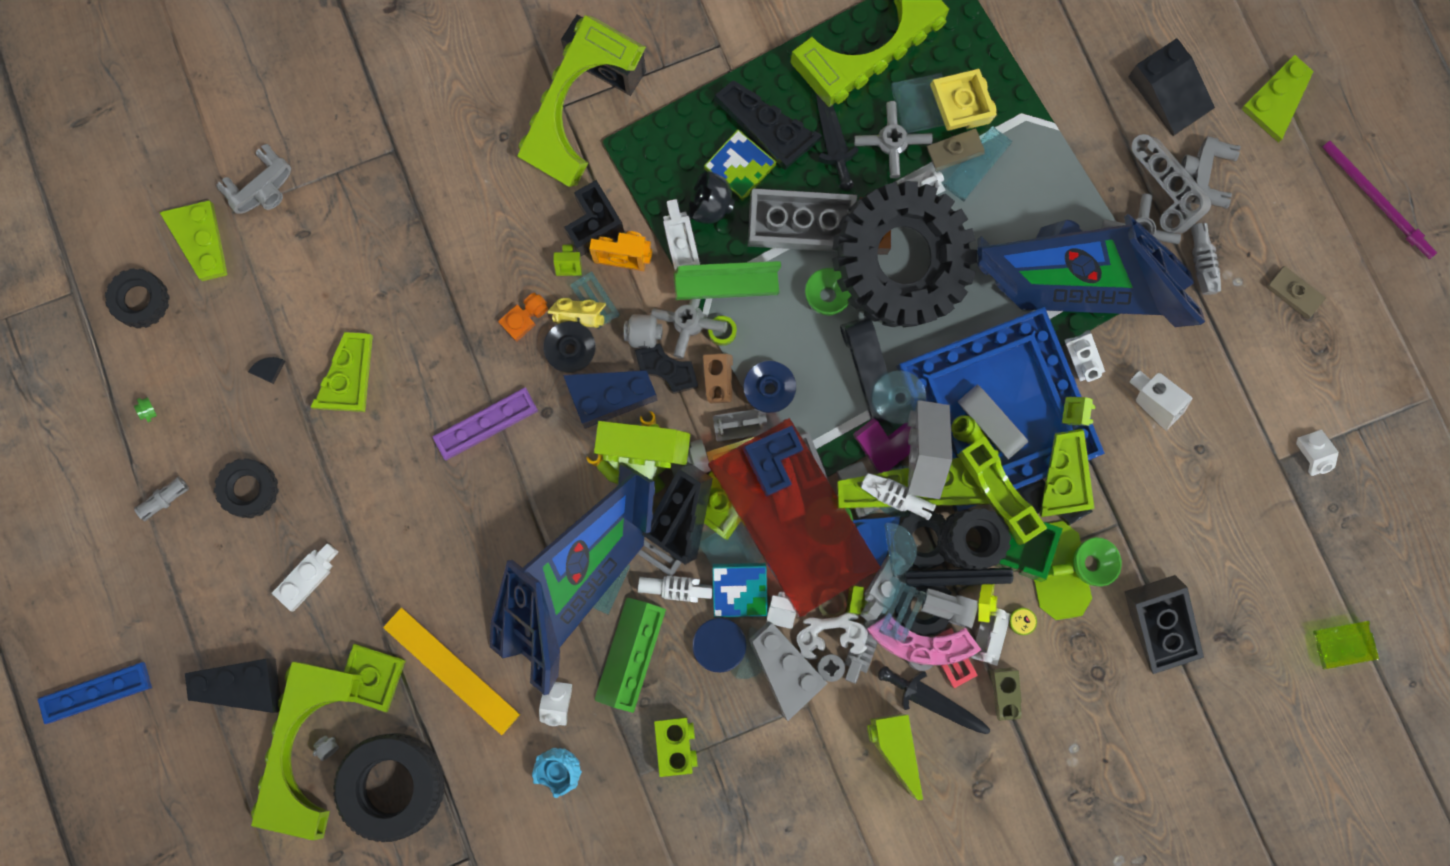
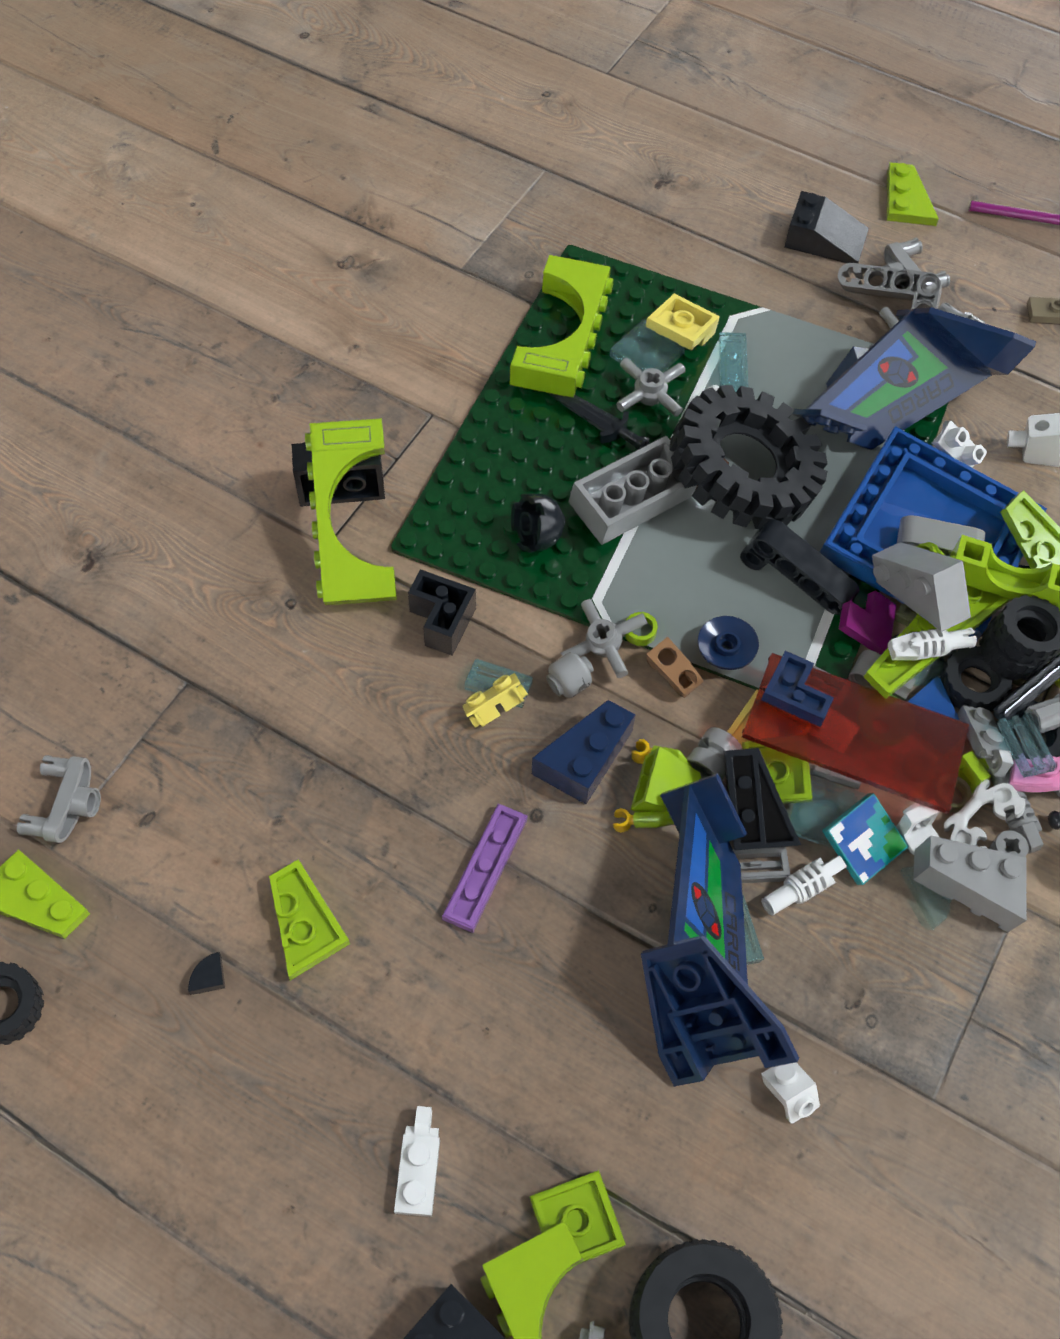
camera: 40 degrees left, 20 degrees down
(144, 409) = (94, 1116): bright green plate -> none
(161, 498) = (183, 1204): light grey pin -> none
(225, 488) = (258, 1096): black tyre -> none
(452, 671) = (658, 1142): yellow tile -> none
(519, 322) = (442, 749): orange plate -> none
(557, 770) = (858, 1157): medium azure hair -> none
(560, 338) = (515, 724): black dish -> none
(567, 262) = (447, 664): lime tile -> none
(629, 252) = (496, 619): light orange plate -> none
(630, 655) = (818, 983): bright green panel -> none
(641, 444) = (669, 754): lime wedge -> none
(667, 747) = (938, 1044): lime brick -> none
(676, 374) = (632, 694): black tile -> none
(680, 236) = (537, 574): white hinge -> none
(719, 645) = (892, 907): dark blue tile -> none
(726, 280) = (609, 579): bright green panel -> none
(739, 424) = (729, 696): light grey hinge -> none
(741, 164) = (537, 478): tile -> none
(775, 132) = (544, 442): black wing -> none
(821, 280) = (704, 523): bright green piece -> none
(887, 389) = (842, 576): clear light blue dish -> none
(901, 548) = (970, 693): clear light blue tile -> none
(956, 150) = (708, 365): dark tan plate -> none
(1078, 411) = (1000, 483): lime tile -> none

